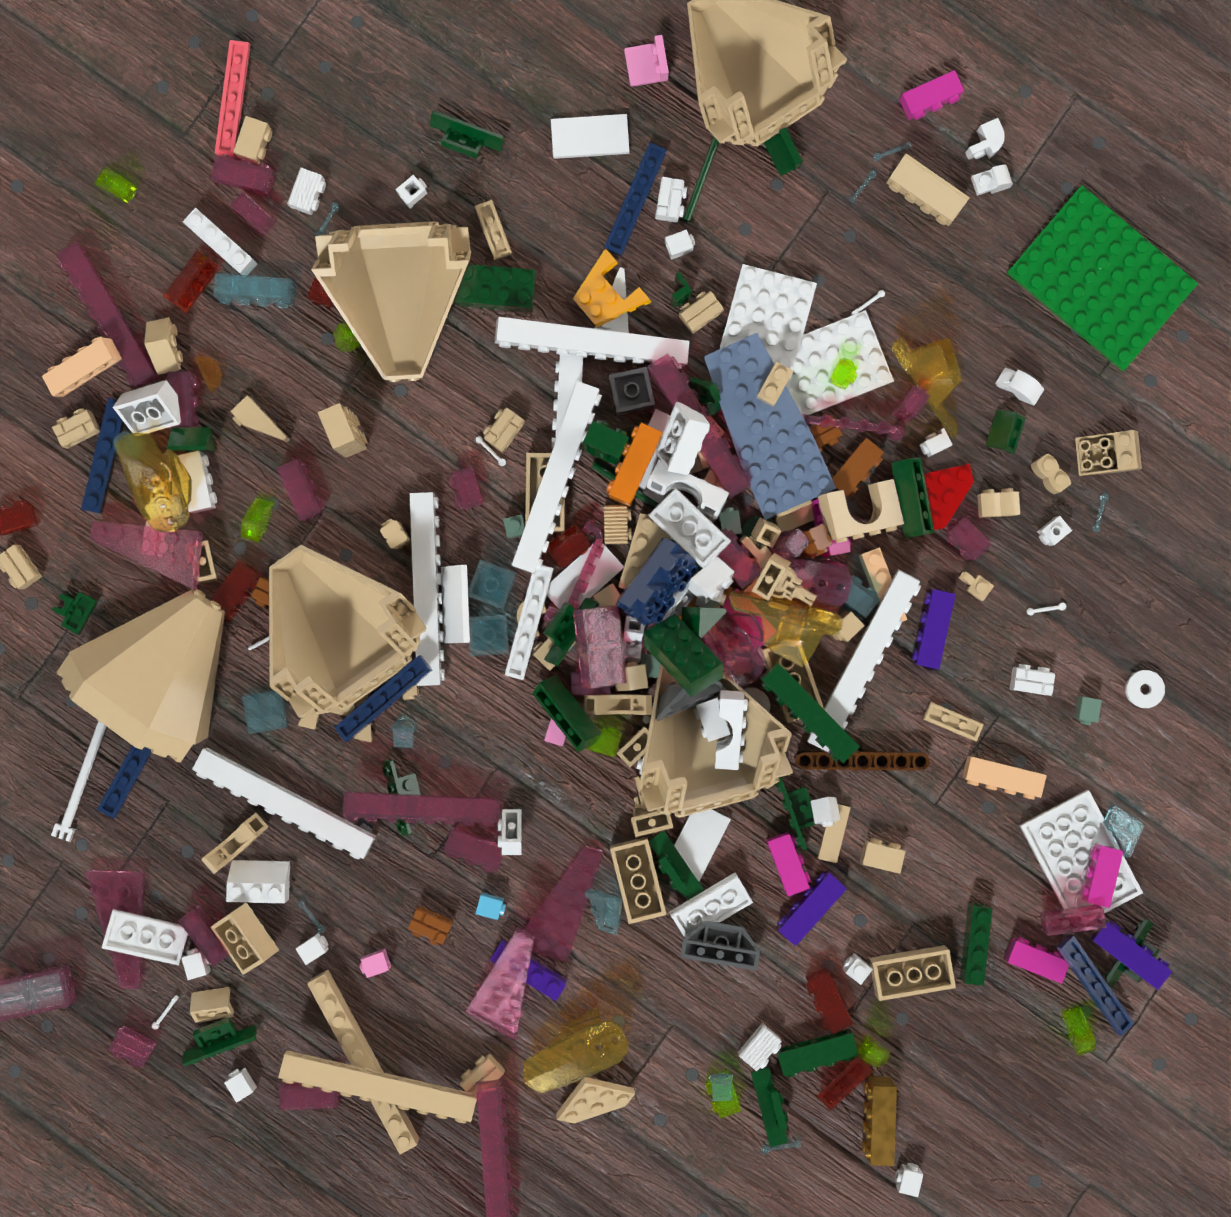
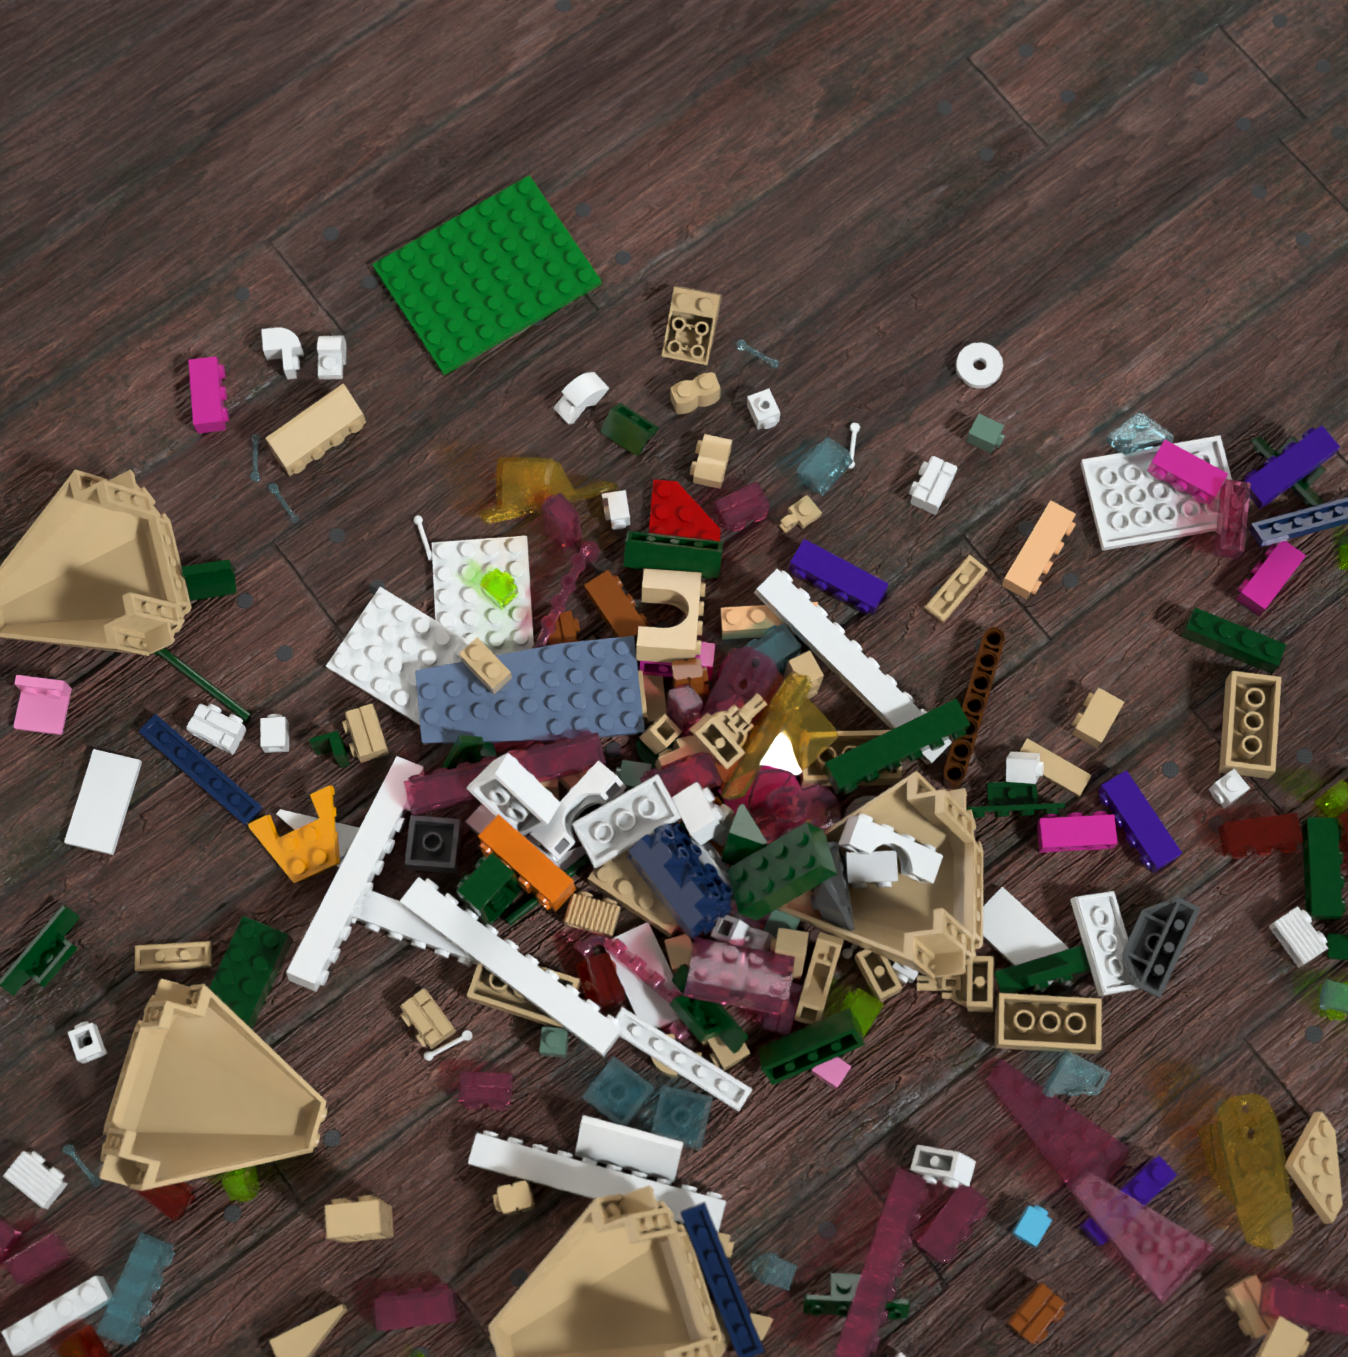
camera: 70 degrees left, 15 degrees down
(1021, 592) = (824, 466): none -> clear light blue brick

